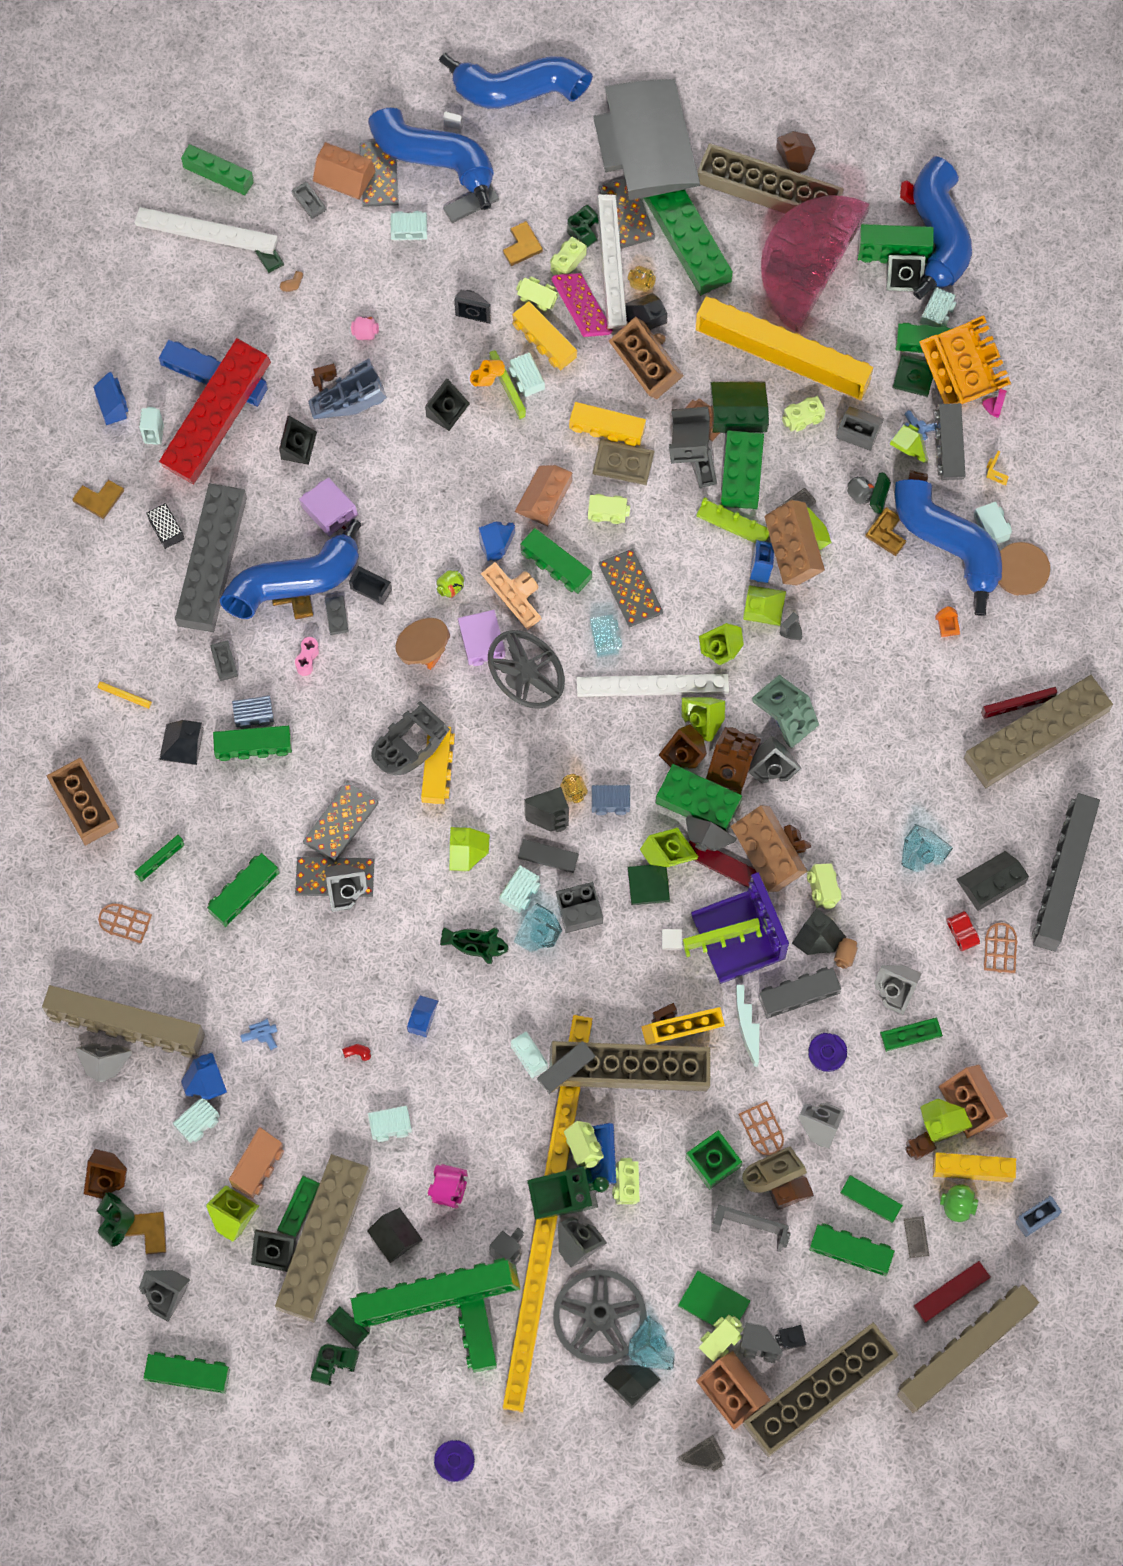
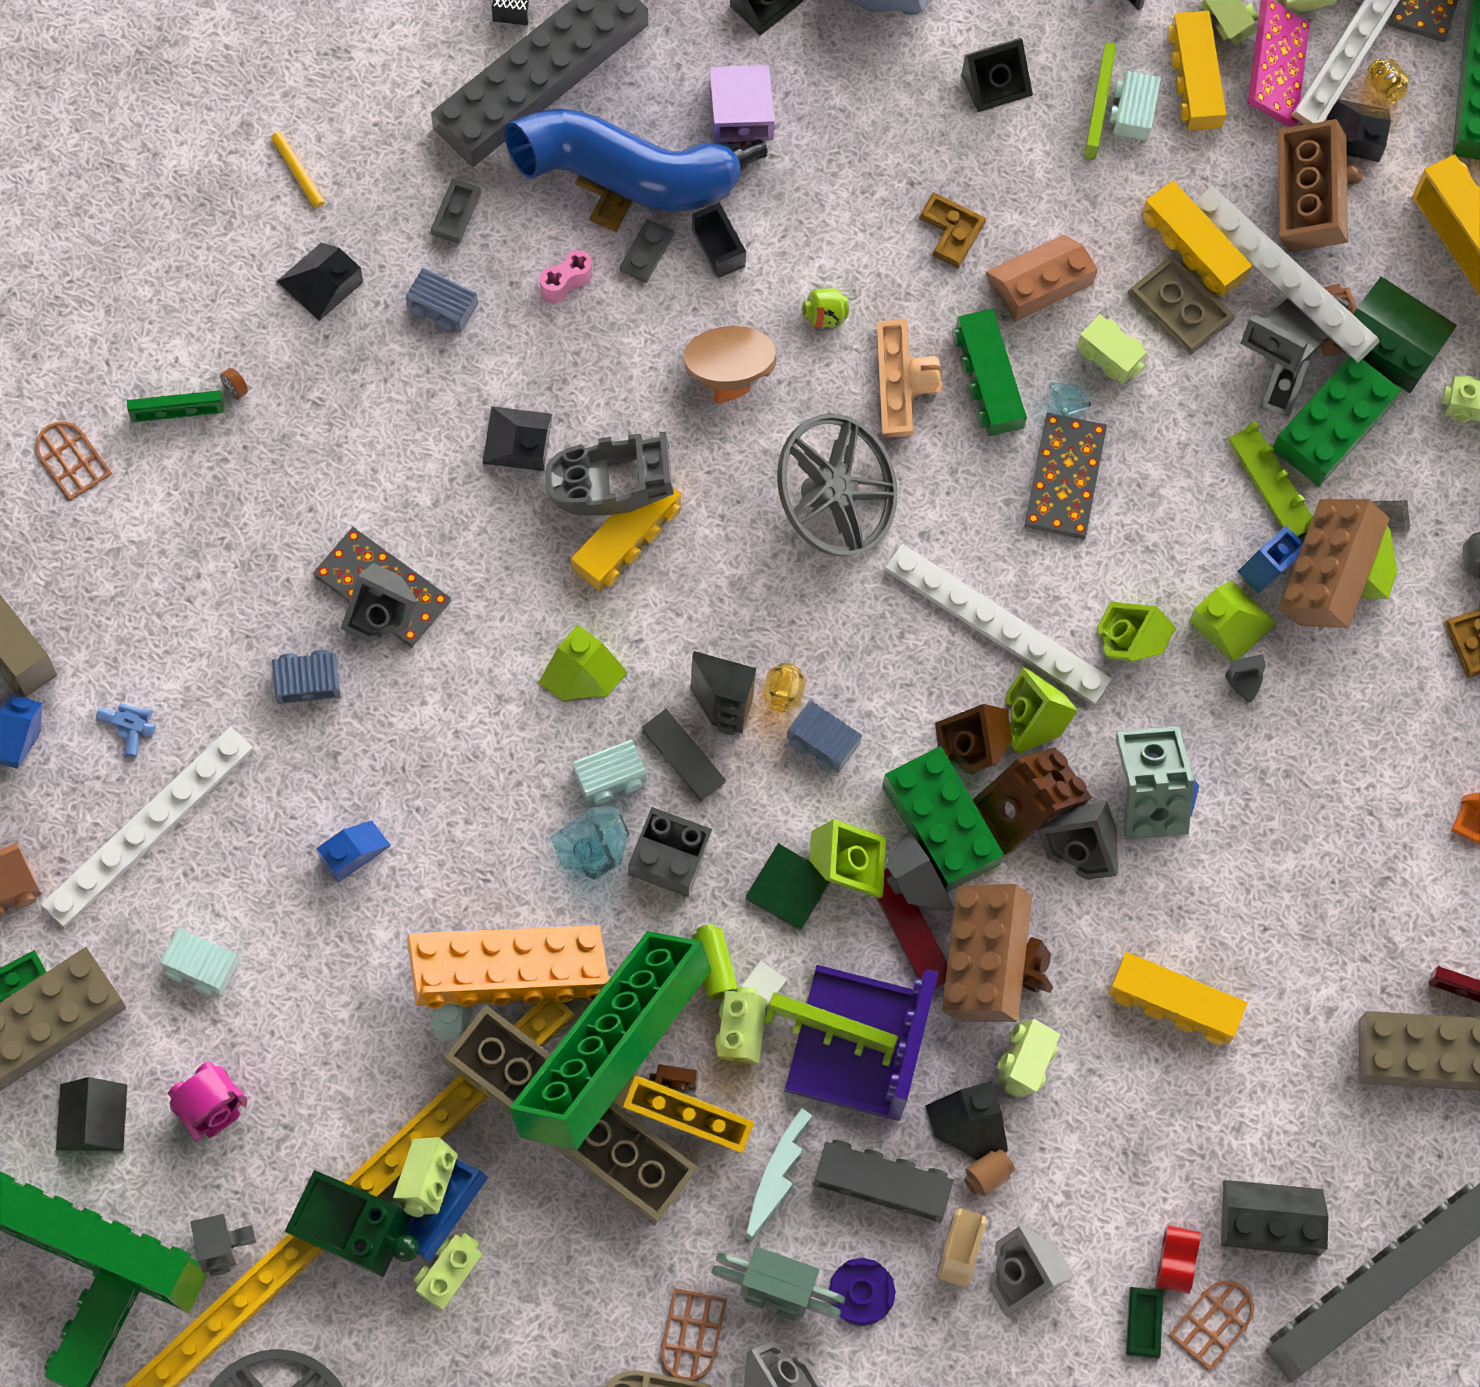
camera: 30 degrees right, 0 degrees up
(82, 801) = (134, 267): medium nougat brick -> none
(180, 826) = (234, 383): none -> dark orange tile
(242, 889) = (249, 520): green brick -> none
(252, 742) = (409, 339): green brick -> none
(311, 1077) = (147, 827): none -> white plate
(333, 947) = (306, 677): none -> sand blue brick
(340, 822) = (443, 520): tile -> none
(345, 755) = (517, 438): none -> black slope
(357, 1049) = (235, 834): red arm -> none
(476, 942) = (496, 802): dark green animal -> none
(478, 634) = (811, 393): lavender brick -> none
(485, 496) = (959, 224): none -> pearl gold tile
(487, 373) = (1082, 67): light orange axle -> none
(496, 539) = (931, 290): blue slope -> none
(545, 1017) = (506, 965): none -> light orange bracket
(566, 1067) = (475, 1053): dark grey tile -> none
(578, 1241) = (322, 1303): dark grey slope -> none
(603, 547) = (1068, 397): none -> clear light blue slope
(605, 636) = (981, 514): clear light blue brick -> none
(626, 1014) = (610, 1040): none -> green brick
(641, 945) = (722, 973): none -> lime brick
(667, 413) = (1288, 276): none -> white plate
(678, 966) = (741, 1026): none -> yellowish green brick
(713, 1160) = (588, 1327): green brick -> none
(787, 1075) = (778, 1283): none -> sand green brick
(859, 998) = (961, 1248): none -> tan animal
(872, 808) = (1177, 998): none -> yellow brick
(911, 1034) = (997, 1351): green tile -> none
(922, 848) = (1207, 1103): clear light blue slope -> none
(969, 972) = (1144, 1322): none -> dark green tile

